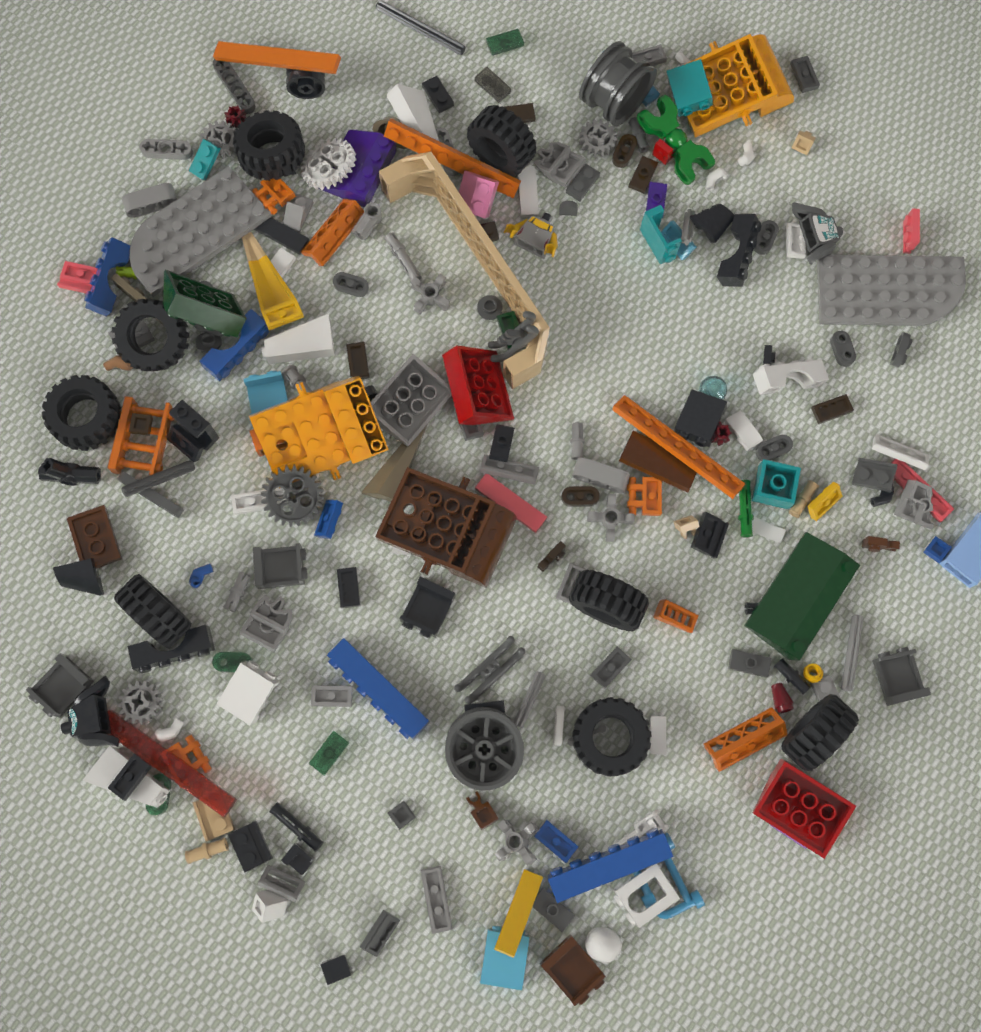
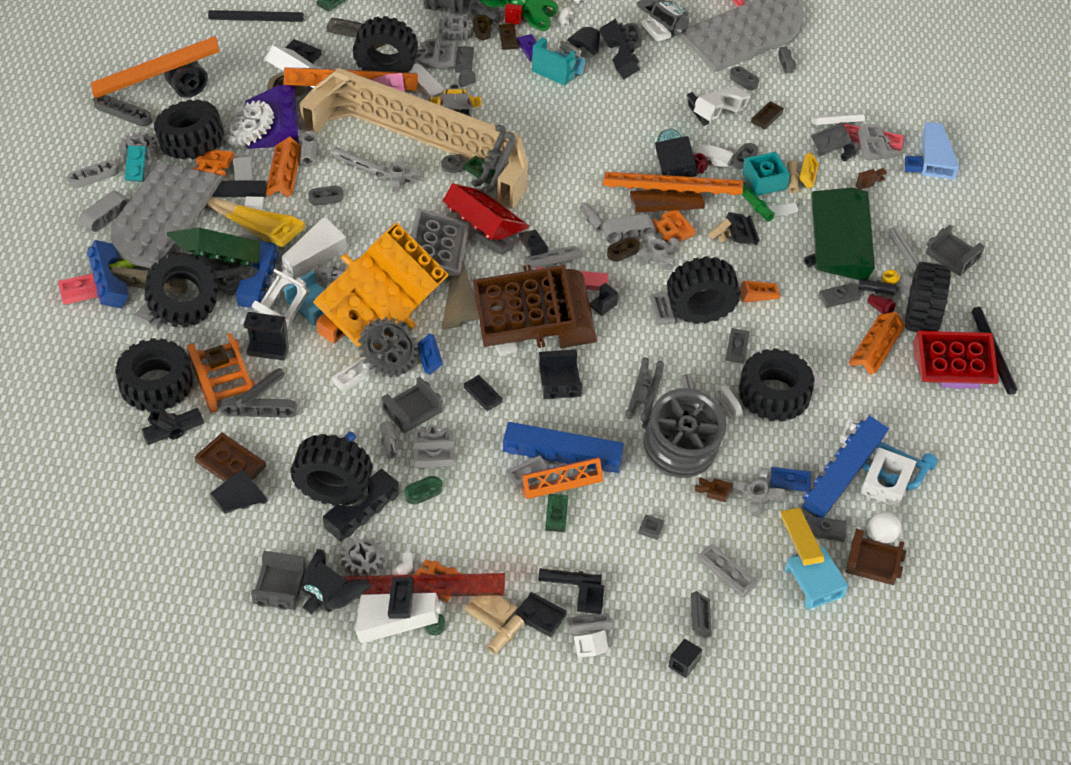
camera: 30 degrees left, 25 degrees down
(117, 362) = (160, 329): medium nougat arm -> none
(185, 442) = (263, 358): black plate -> none
(220, 397) = (283, 279): none -> white panel
(235, 116) = (141, 125): dark red gear -> none
(247, 691) = (455, 499): white panel -> none
(351, 726) = (562, 483): none -> orange fence
(357, 360) = (364, 238): dark brown tile -> none
(523, 545) = (606, 301): none -> black panel
(555, 554) = (634, 293): dark brown plate -> none
(858, 799) = (1002, 367): none -> black axle

